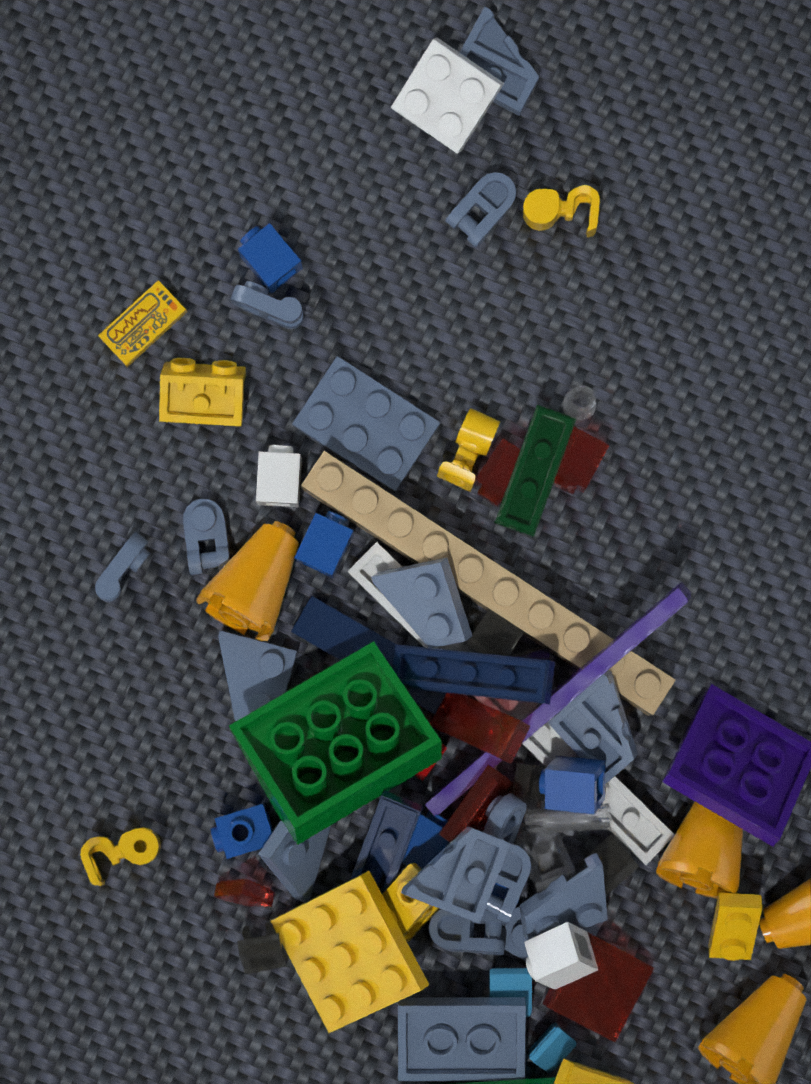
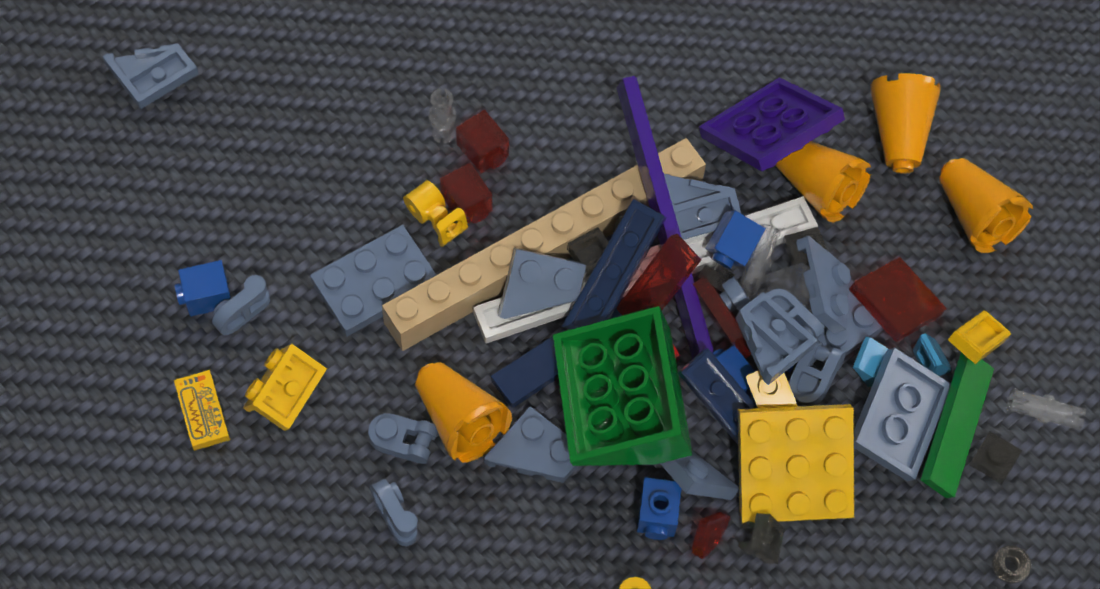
camera: 70 degrees left, 20 degrees down
(279, 477) = (384, 357): white brick -> none
(325, 543) = (455, 345): blue brick -> none
(447, 95) = (154, 109): white plate -> none
(493, 196) = (248, 115): sand blue plate -> none
(535, 471) = (478, 164): dark green tile -> none
(545, 206) = (278, 78): yellow leg -> none
(560, 956) = (866, 303): white brick -> none
(735, 926) = (892, 181): yellow plate -> none

